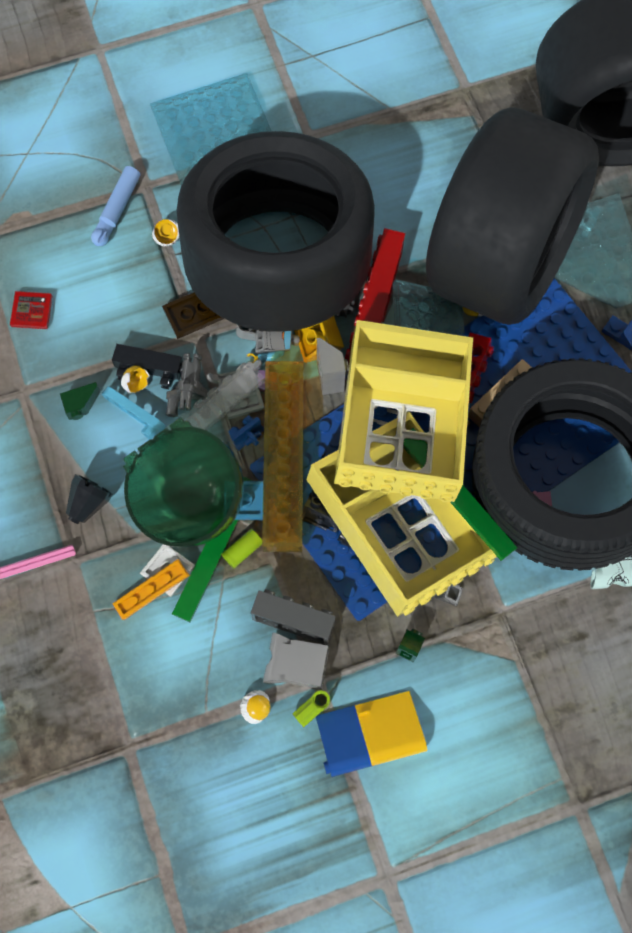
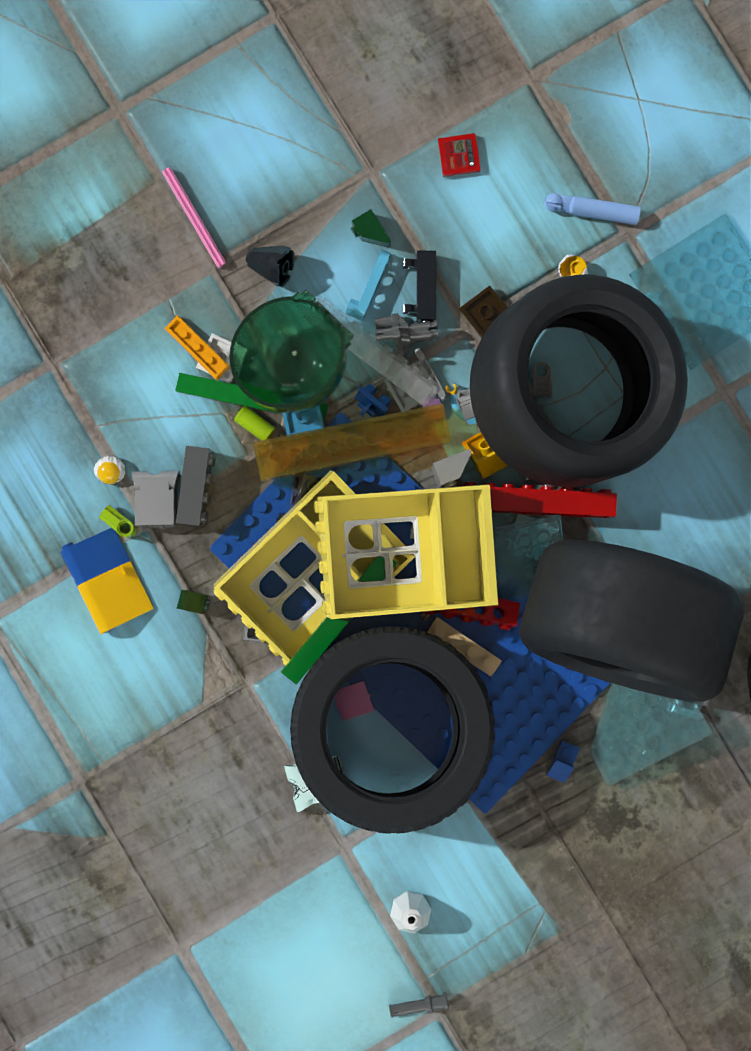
camera: 80 degrees right, 15 degrees up
(135, 379) = (403, 278): yellow hair -> none

